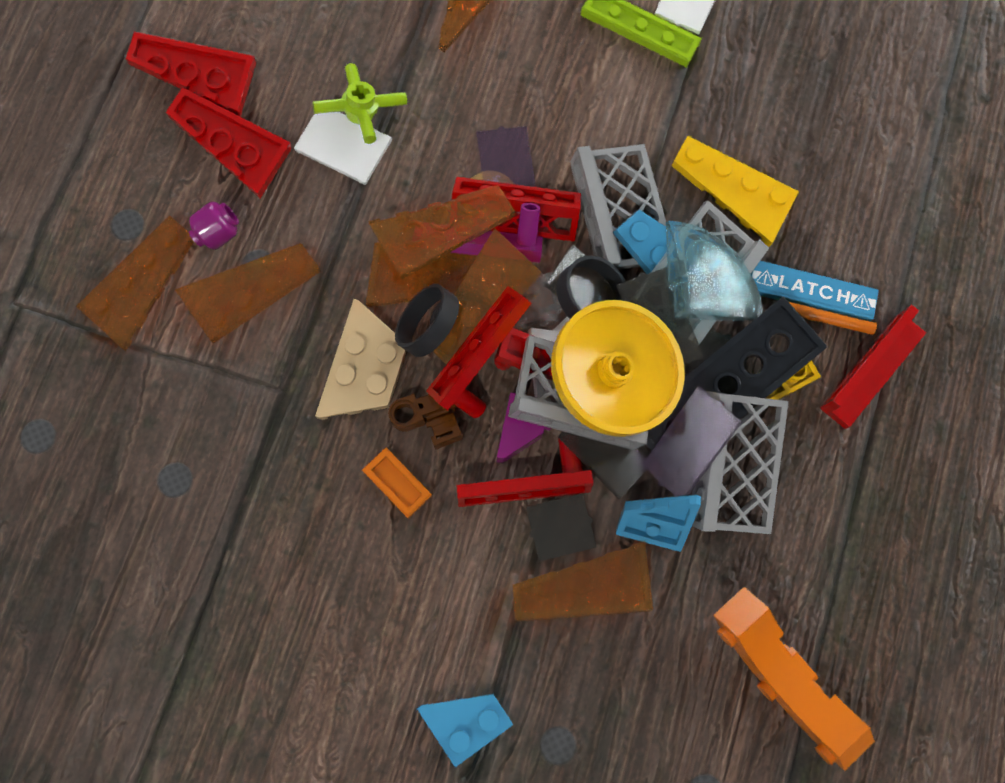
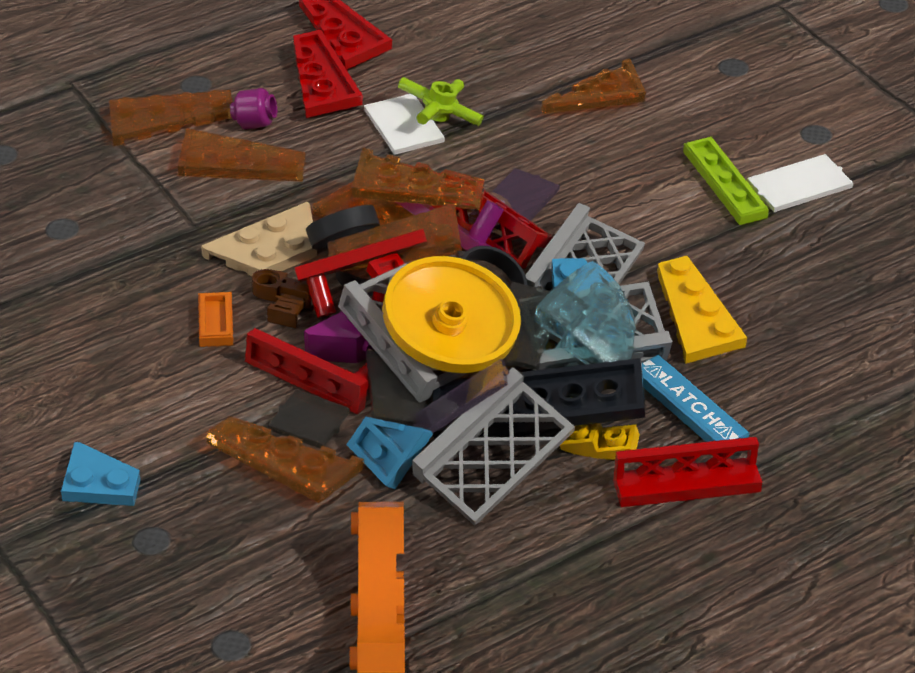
camera: 45 degrees right, 35 degrees down
(835, 319) = (675, 420): orange bar -> none

